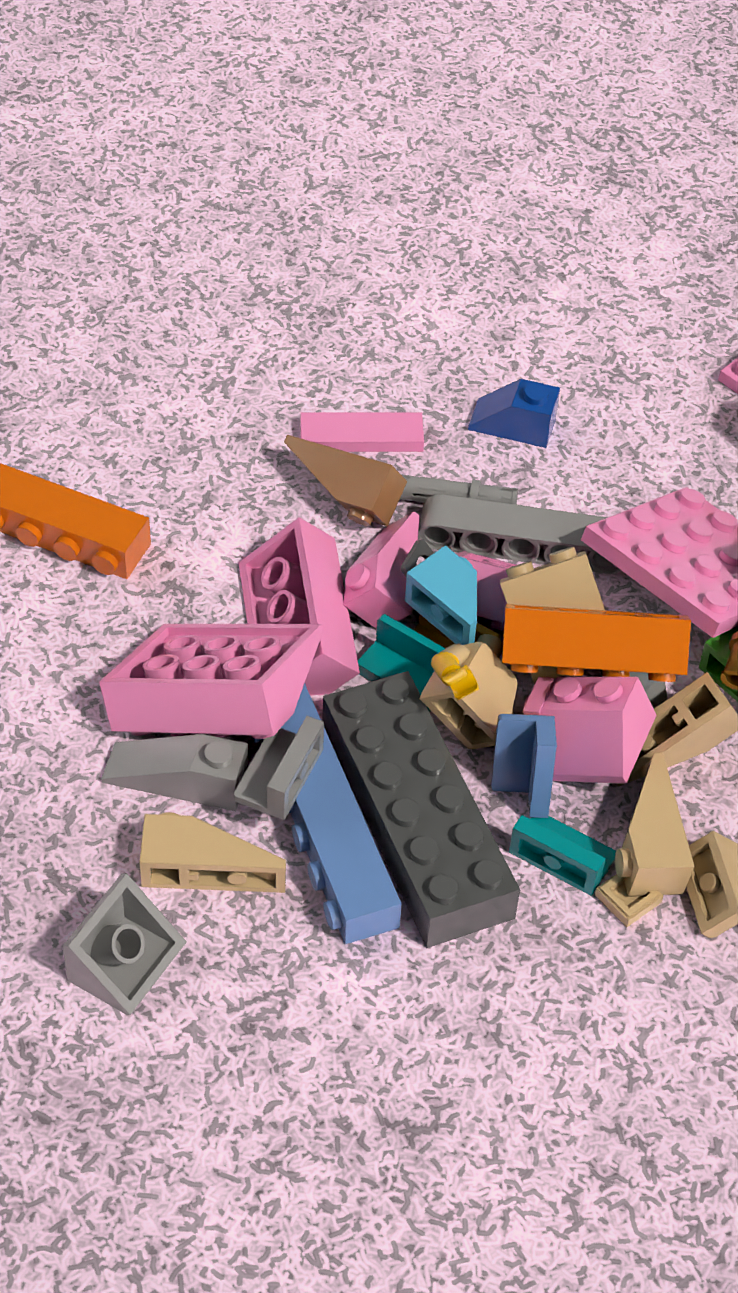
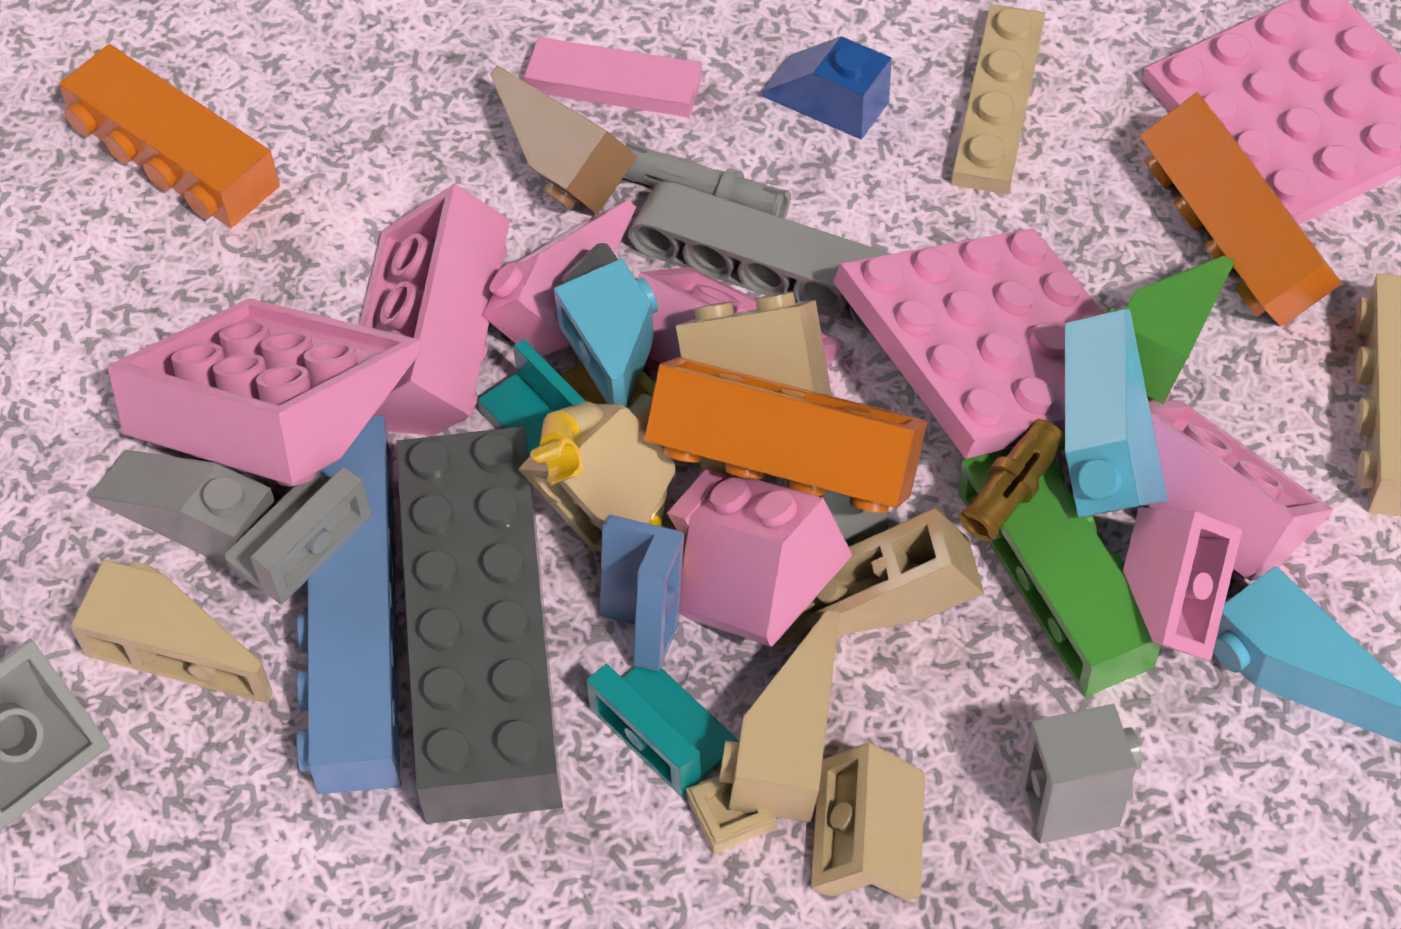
camera: 20 degrees right, 5 degrees up
(630, 406) = (998, 99): none -> tan plate

